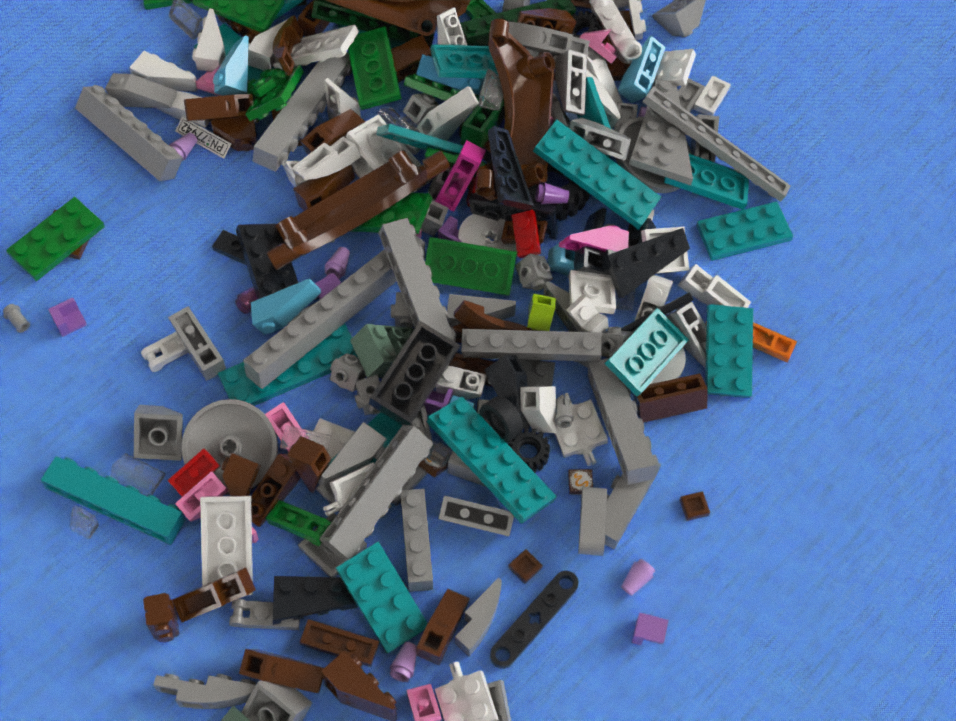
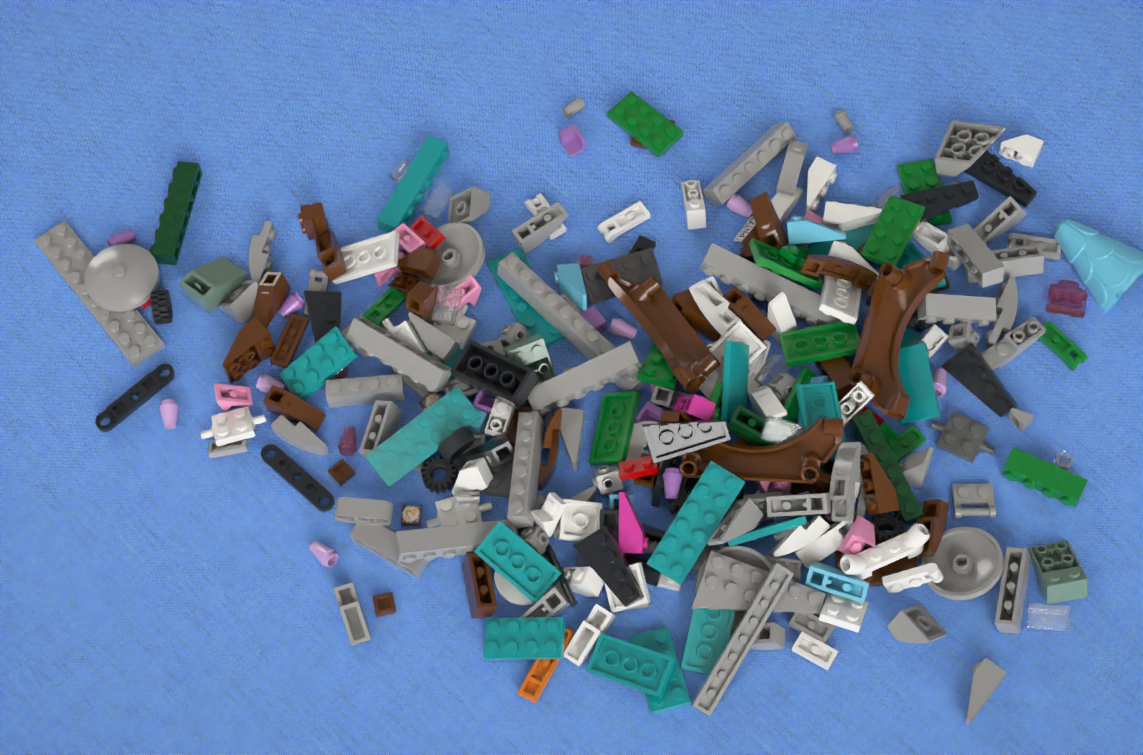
camera: 100 degrees right, 0 degrees up
(78, 48) = (842, 118): none -> light grey pin
(112, 47) = (845, 145): none -> medium lavender cone
(176, 190) = (693, 204): none -> white slope
(191, 261) = (624, 221): none -> white plate
(284, 643) = (291, 305): none -> medium lavender cone
(486, 558) = (348, 442): none -> clear pink cone
(541, 312) = (563, 480): lime slope -> none
(649, 629) = (277, 557): medium lavender panel -> none
(711, 539) = (352, 613): none -> light grey slope
(750, 248) = (631, 665): none -> teal plate

